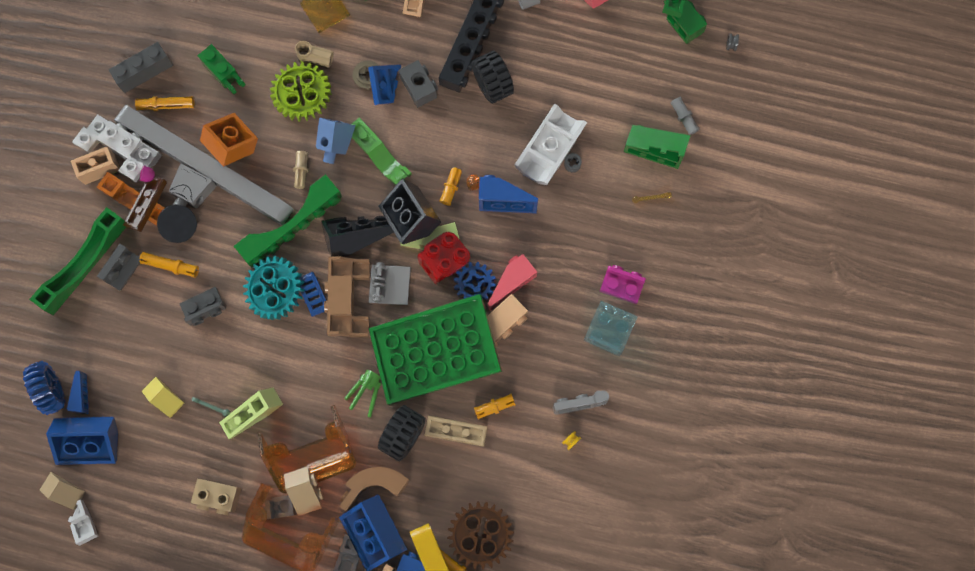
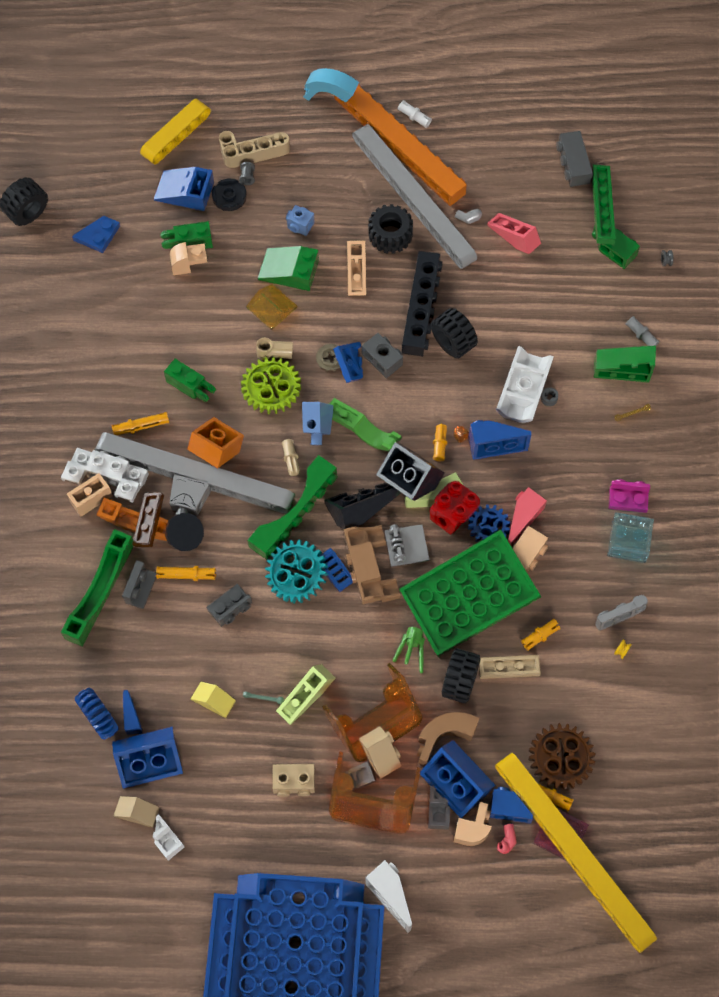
camera: 15 degrees left, 10 degrees down
(140, 67) = (108, 395): dark grey brick -> none
(147, 174) = (143, 491): dark pink hinge -> none

